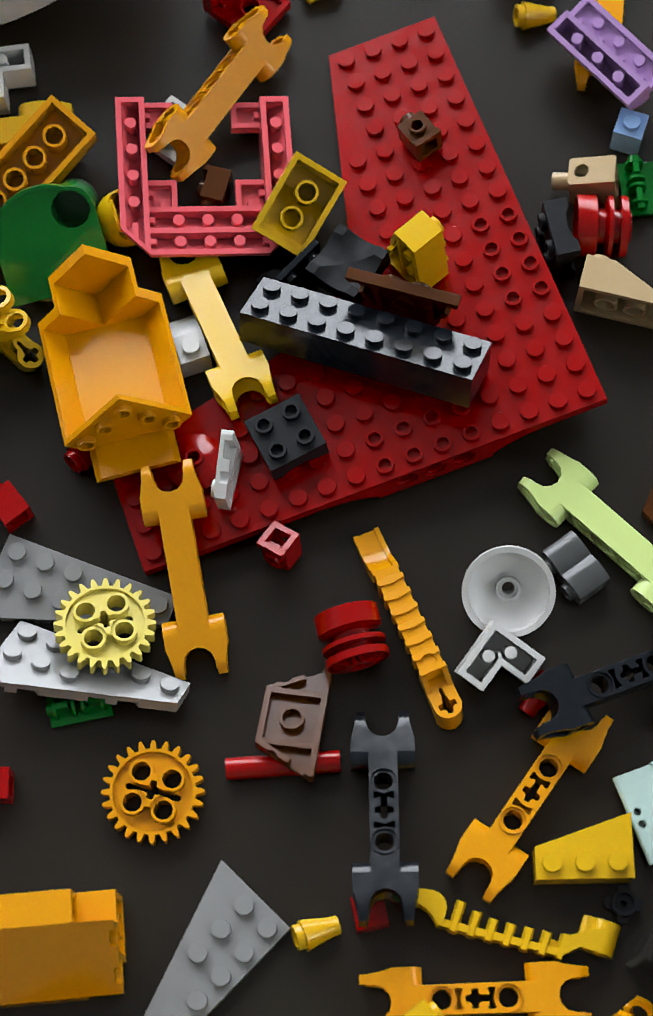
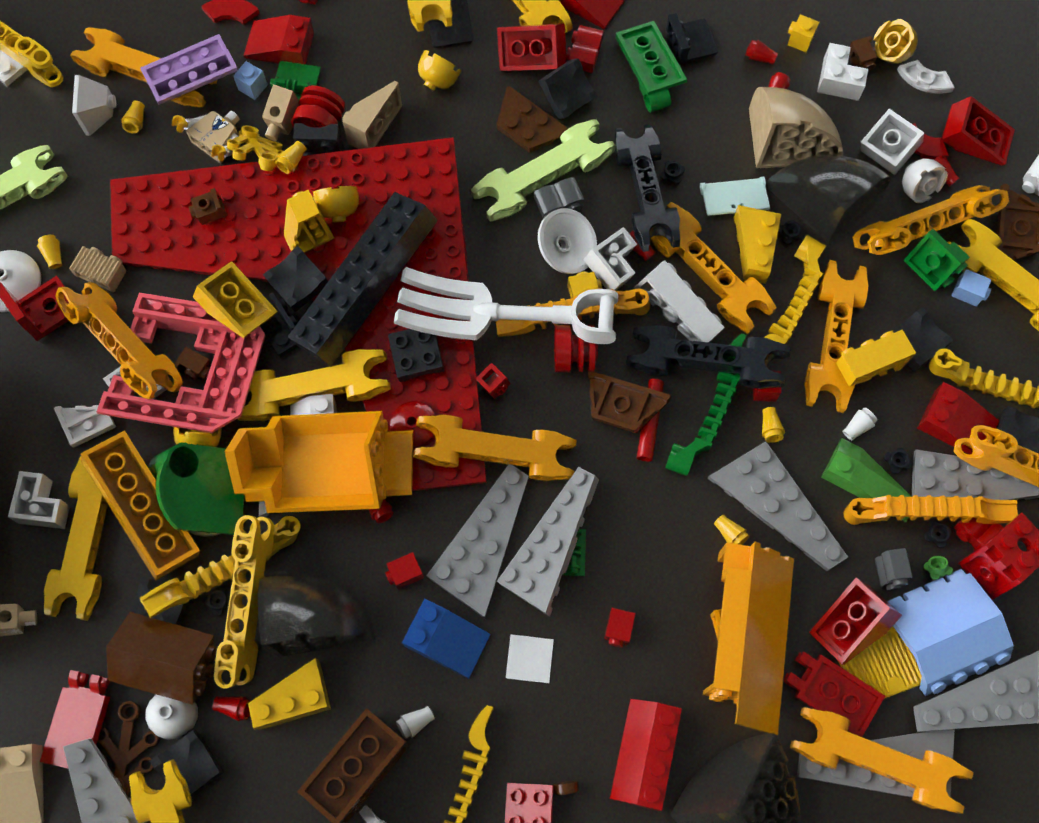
camera: 80 degrees left, 0 degrees up
(107, 85) = (83, 423): none -> white wing
(112, 649) = (502, 517): light yellow gear -> none
(144, 820) = (669, 521): light orange gear -> none
(148, 908) = (731, 531): none -> yellow cone
(227, 470) = (423, 397): white wing -> none
(238, 817) = (682, 457): none -> green piece
(312, 43) = (98, 268): none -> tan brick
(362, 502) = (481, 310): none -> white piece
(404, 298) = (341, 241): reddish brown wing -> none
(450, 632) = (582, 282): none -> yellow brick
(456, 766) = (680, 303): none -> white wedge
(459, 275) = (337, 202): none -> yellow cylinder
(514, 207) = (289, 159): none -> yellow cone
(535, 112) = (210, 132): none -> torso
(549, 156) = (264, 148): none -> yellow plant

